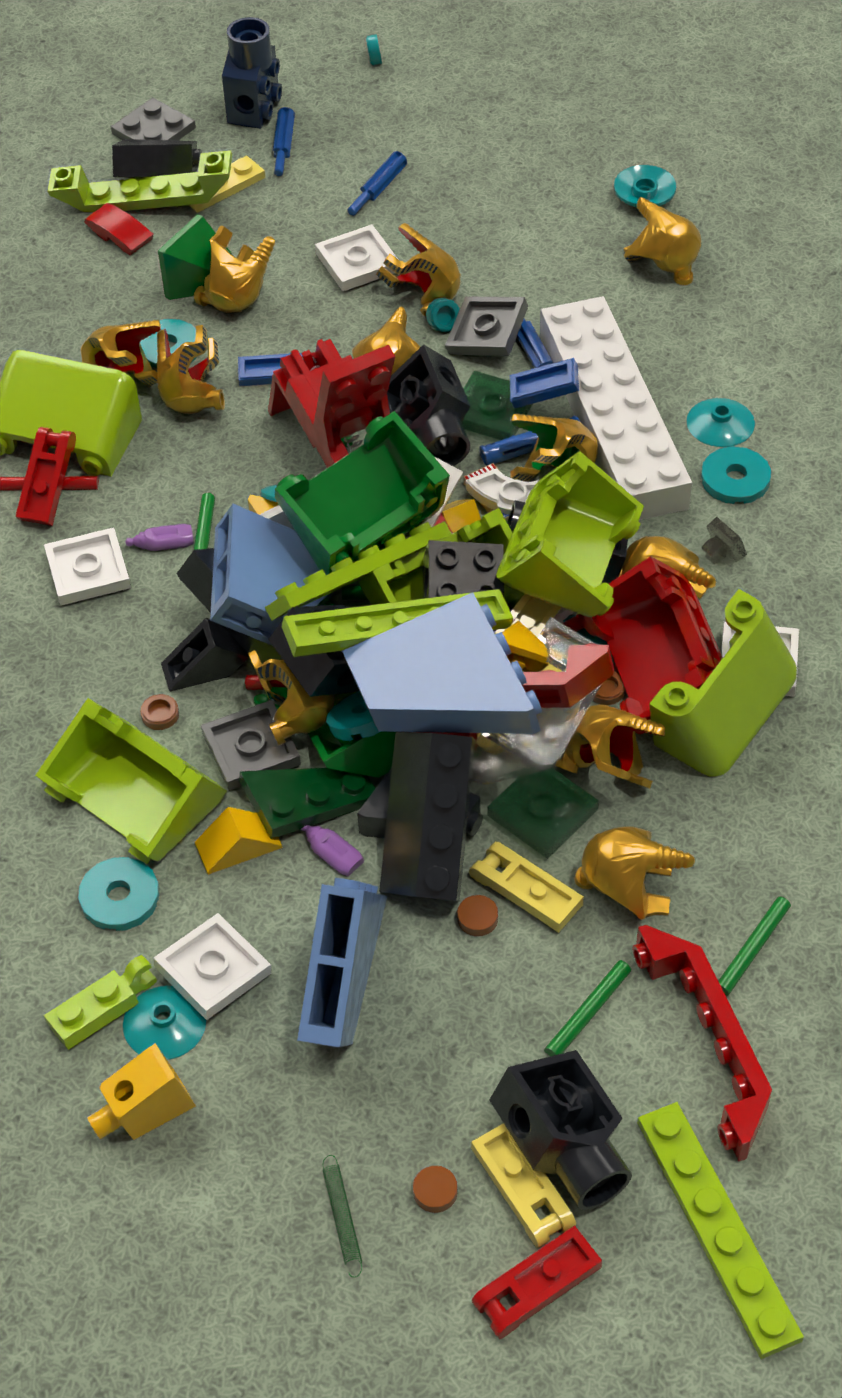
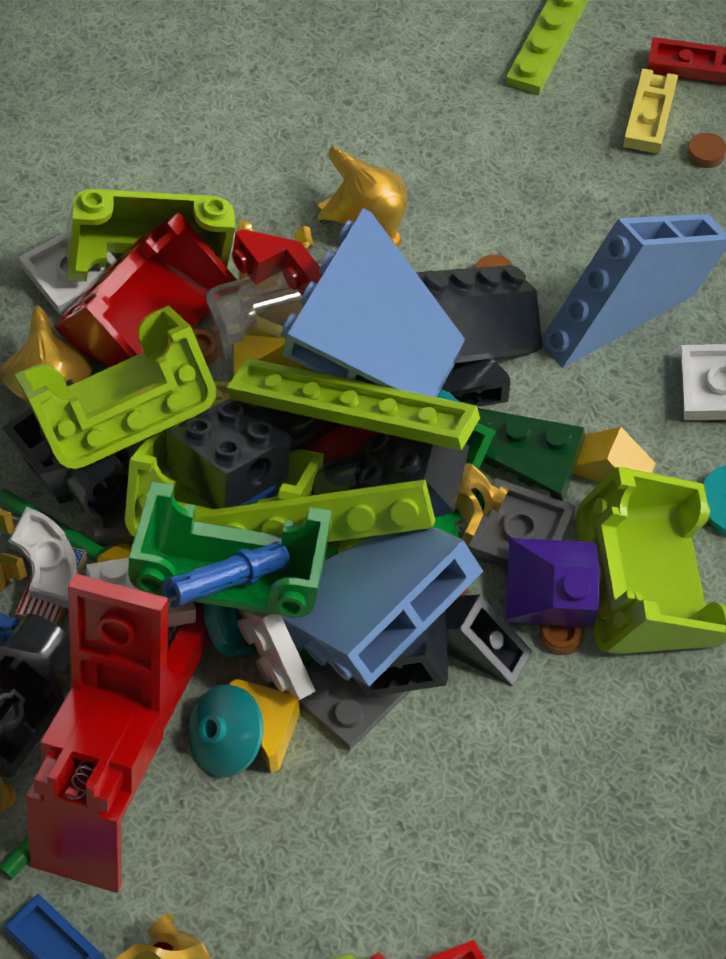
camera: 135 degrees left, 5 degrees up
(87, 566) = (484, 847): white plate -> none
(163, 538) = (378, 819): medium lavender piece -> none
(183, 713) = (552, 582): none -> dark purple slope
(204, 521) = (341, 789): green bar -> none
(333, 849) = (543, 395): medium lavender piece -> none
(346, 491) = (241, 569): none -> blue pin
(527, 886) = (438, 242): light yellow plate -> none
(564, 1125) = (598, 96): black brick -> none
(588, 1009) = (491, 167): green bar -> none
(669, 954) = (474, 34): red slope -> none
(754, 944) = (342, 119): green bar -> none

